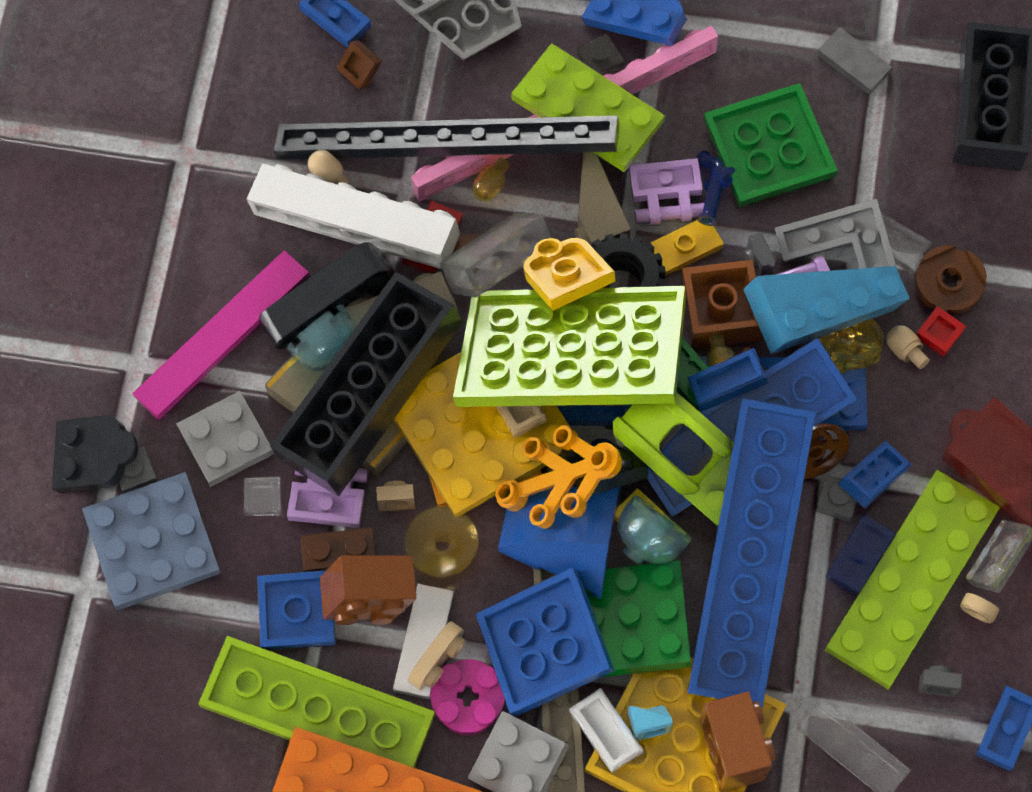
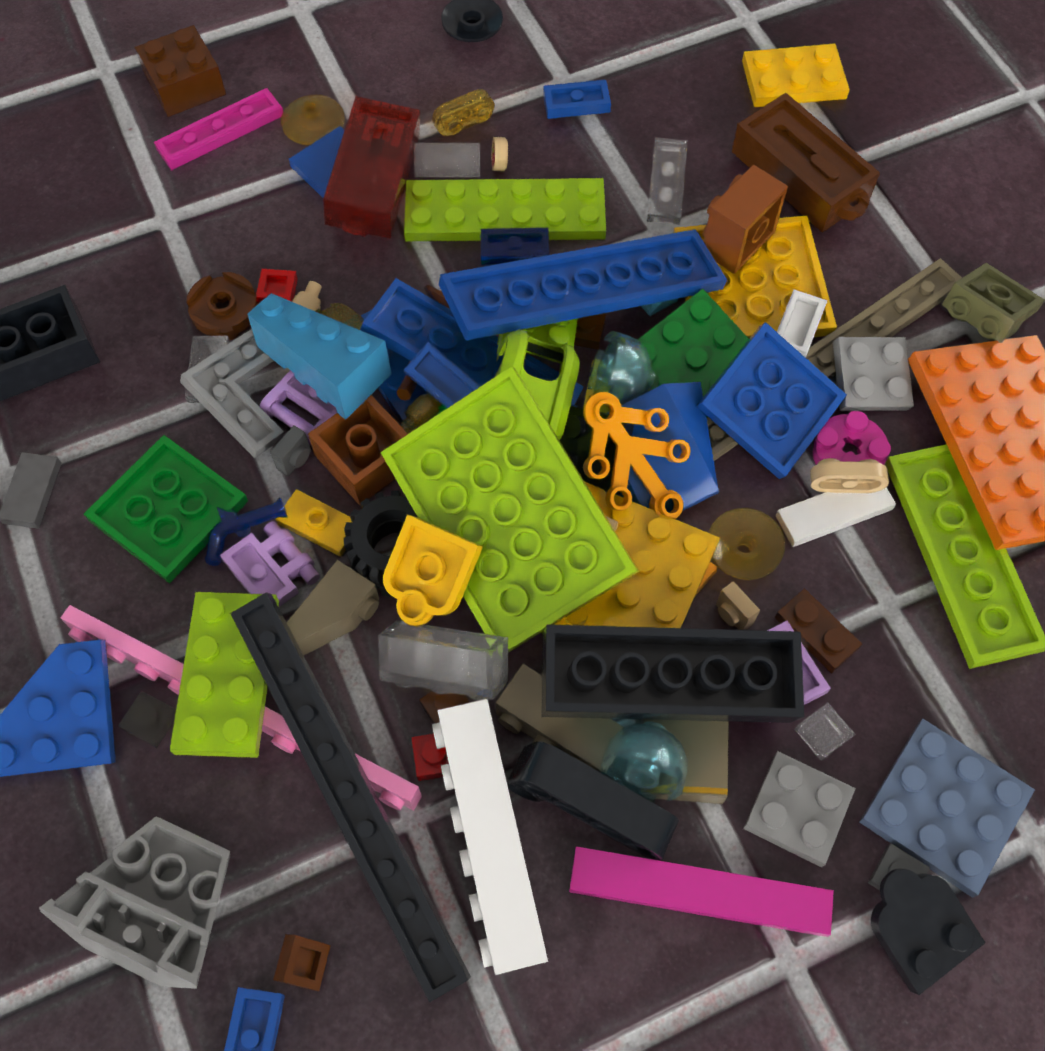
camera: 125 degrees left, 5 degrees down
(292, 612) = (900, 625): blue plate -> none
(327, 167) = (452, 904): tan cylinder -> none
(367, 588) = (847, 557): dark orange brick -> none
(490, 180) = (364, 733): clear yellow cylinder -> none
(649, 722) = (769, 294): medium azure slope -> none
(874, 474) = (426, 266): blue plate -> none
(940, 681) = (577, 149): dark grey plate -> none

